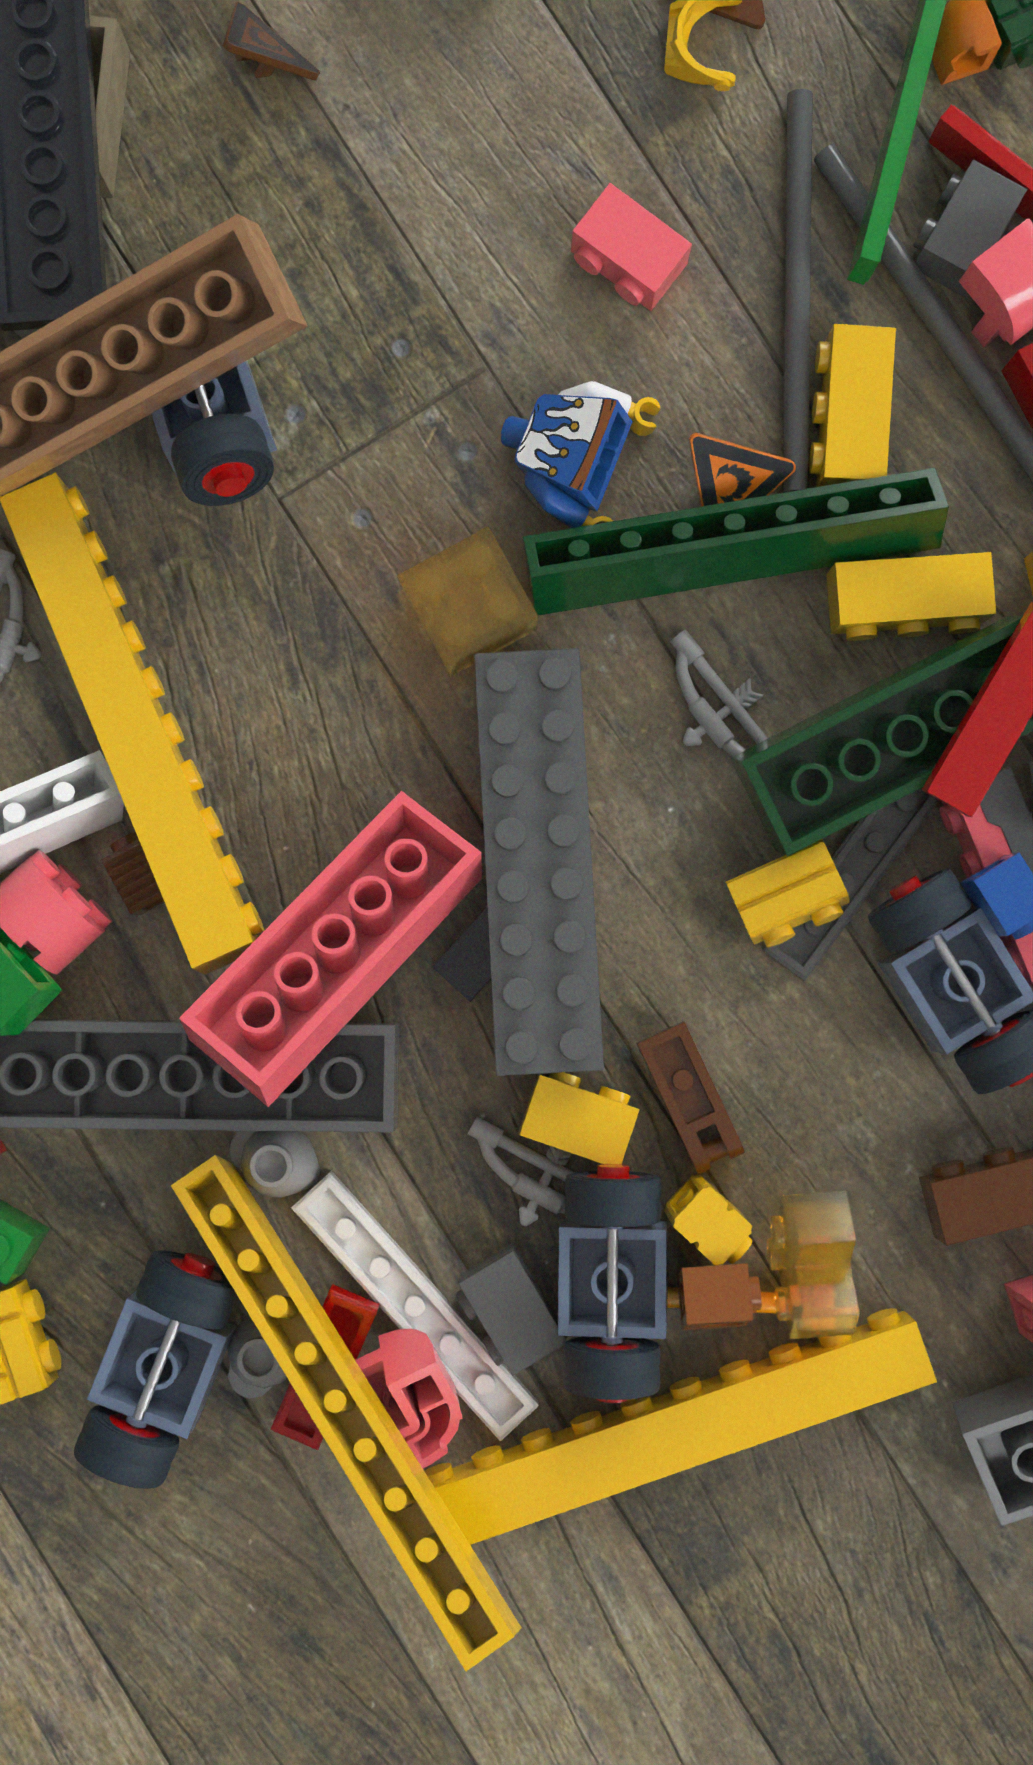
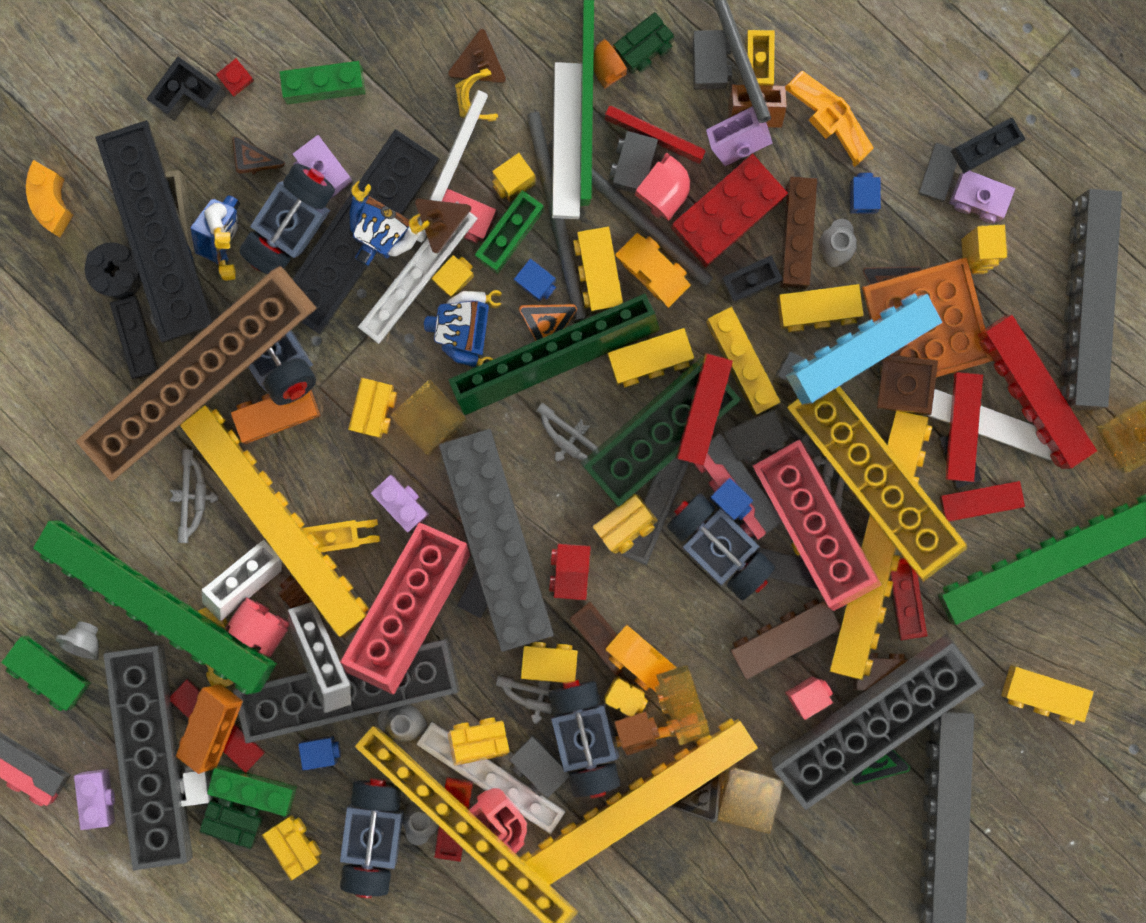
camera: 15 degrees left, 0 degrees up
(104, 1177) = (319, 752): none -> blue brick
(144, 1000) = (319, 657): none -> light grey brick
(155, 155) = (214, 232): none -> torso
(171, 529) = (268, 418): none -> orange brick
(251, 781) = (342, 535): none -> yellow hinge
(304, 156) = (288, 219): none -> brick
(367, 559) = (372, 407): none -> yellow brick
(374, 747) = (400, 503): none -> lavender brick
(387, 94) = (319, 157): none -> lavender brick
(407, 1234) = (478, 741): none -> yellow brick
(432, 222) = (332, 266): none -> black plate
(467, 221) = (380, 228): none -> torso
(517, 325) = (410, 284): none -> white tile
(579, 351) = (453, 276): none -> yellow brick
(585, 232) = (443, 220): none -> reddish brown piece
(627, 140) = (456, 151): none -> white tile
(665, 954) = (571, 571): none -> red brick
(706, 294) = (509, 232): none -> green brick
(730, 399) = (535, 281): none -> blue brick
(740, 192) = (513, 177): none -> yellow brick
(753, 1152) = (639, 657): none -> light orange brick
(805, 1458) = (702, 801): none -> piece
(853, 155) = (566, 141): none -> white tile
(894, 1473) = (749, 798): none -> clear yellow brick
(957, 431) = (653, 269): none -> light orange brick

